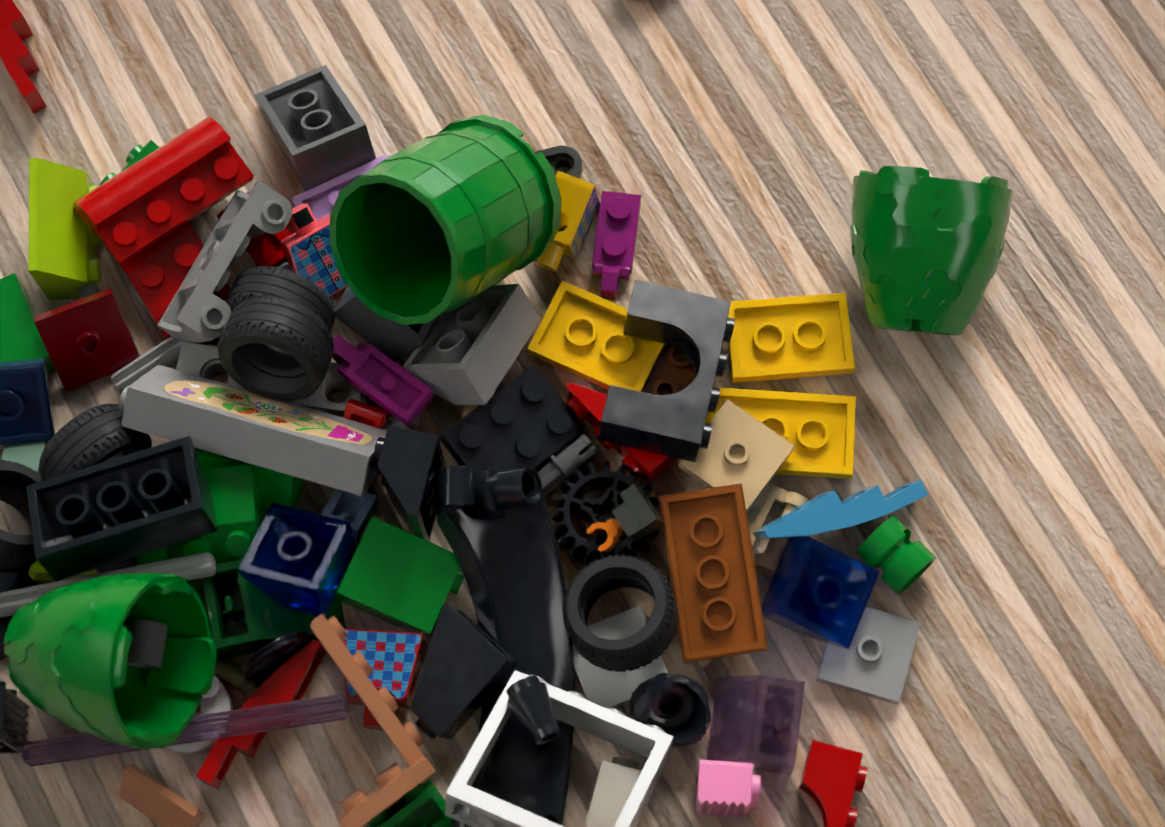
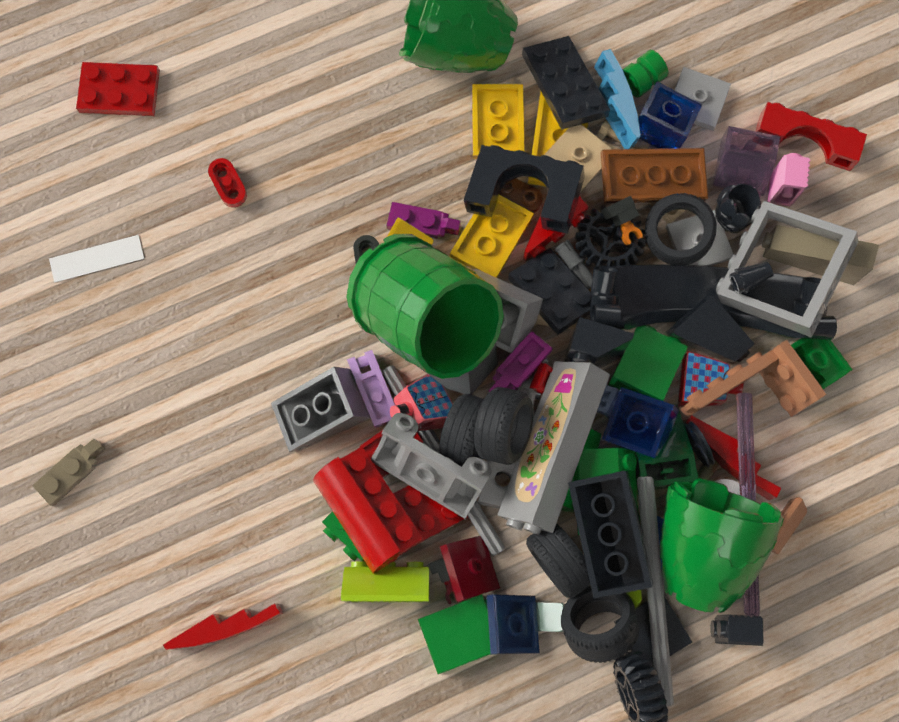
camera: 90 degrees left, 5 degrees up
(863, 430) = (565, 82): none -> black plate

